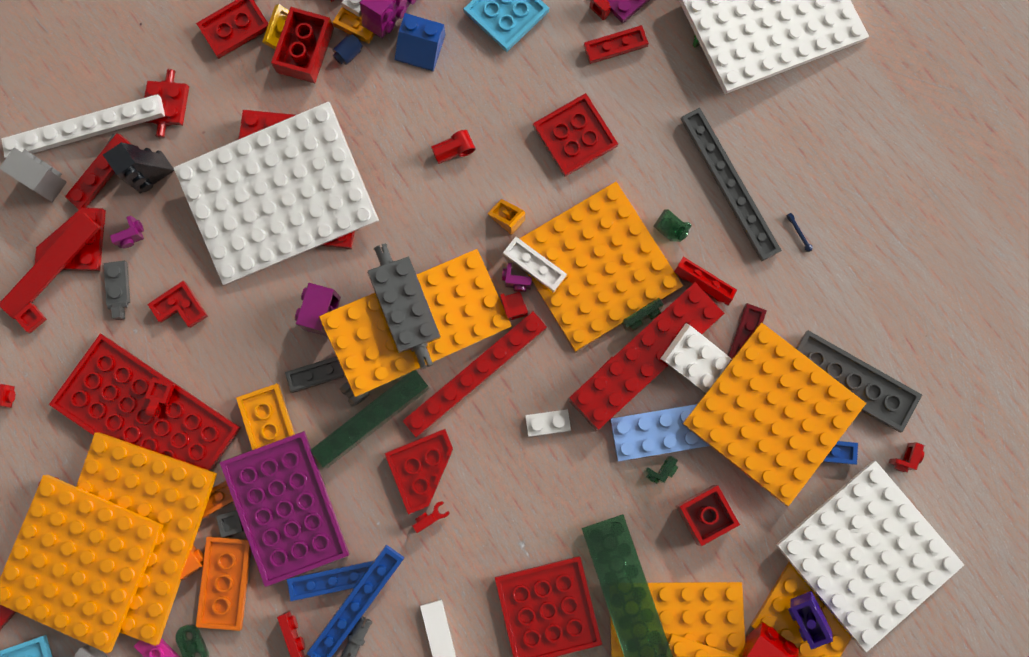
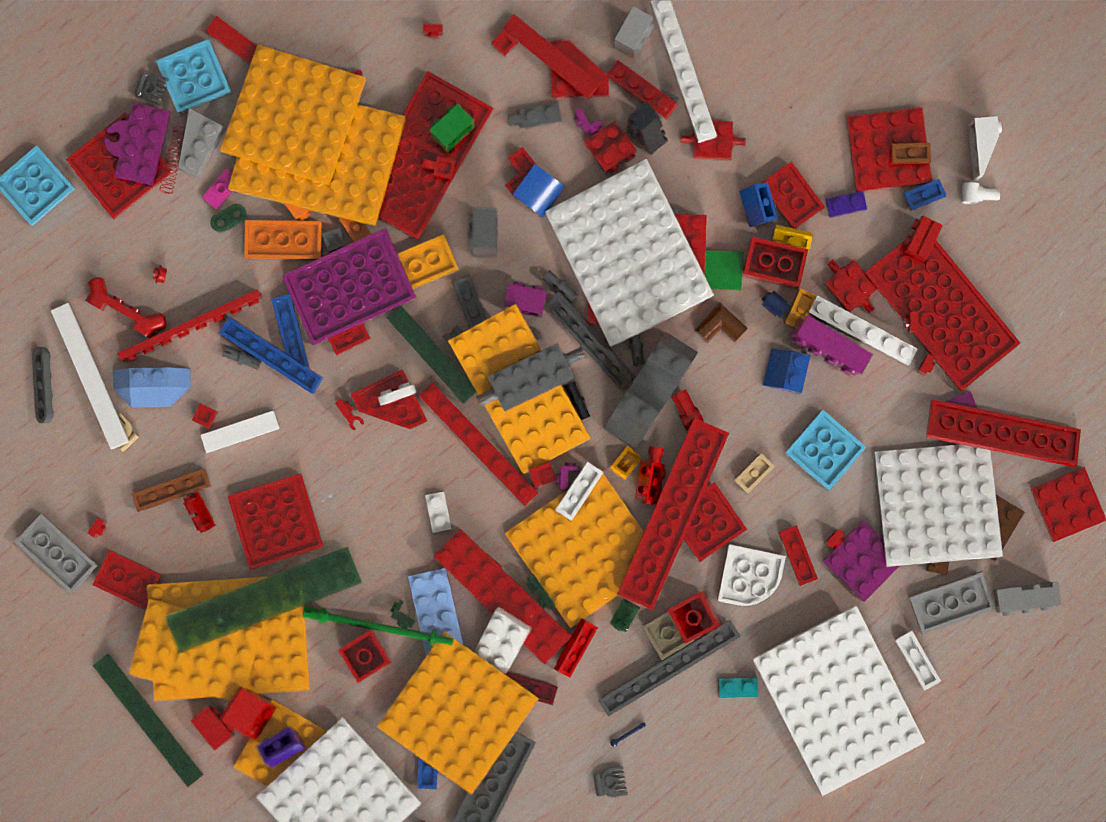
camera: 80 degrees right, 5 degrees up
(111, 378) = (451, 127): none -> green brick
(161, 210) = (611, 148): none -> red plate
(198, 289) = (538, 190): none -> blue slope
(234, 347) = (484, 232): none -> dark grey brick
(238, 58) = (758, 204): none -> blue brick
(305, 96) = (724, 269): none -> green tile
(307, 273) = (560, 286): none -> dark grey pin
(345, 512) = (349, 339): none -> red plate
(359, 107) = (720, 319): none -> reddish brown brick
(363, 248) = (590, 340): none -> dark grey plate
(388, 196) = (636, 350): none -> dark grey pin
(413, 470) = (389, 396): none -> white plate
(433, 261) = (577, 400): none -> black pin
(438, 187) = (650, 390): none -> dark grey piece
(523, 192) = (649, 477): none -> red brick
(526, 83) = (754, 473): none -> tan plate
(565, 166) = (673, 513): none -> red plate
(635, 95) = (749, 576): none -> white plate
(658, 560) = (323, 615): none -> green bar
(677, 151) = (694, 617): none -> red slope
(693, 182) = (664, 635): none -> dark tan plate
(753, 115) = (738, 687): none -> teal plate
(852, 255) = (608, 783): none -> dark grey piece

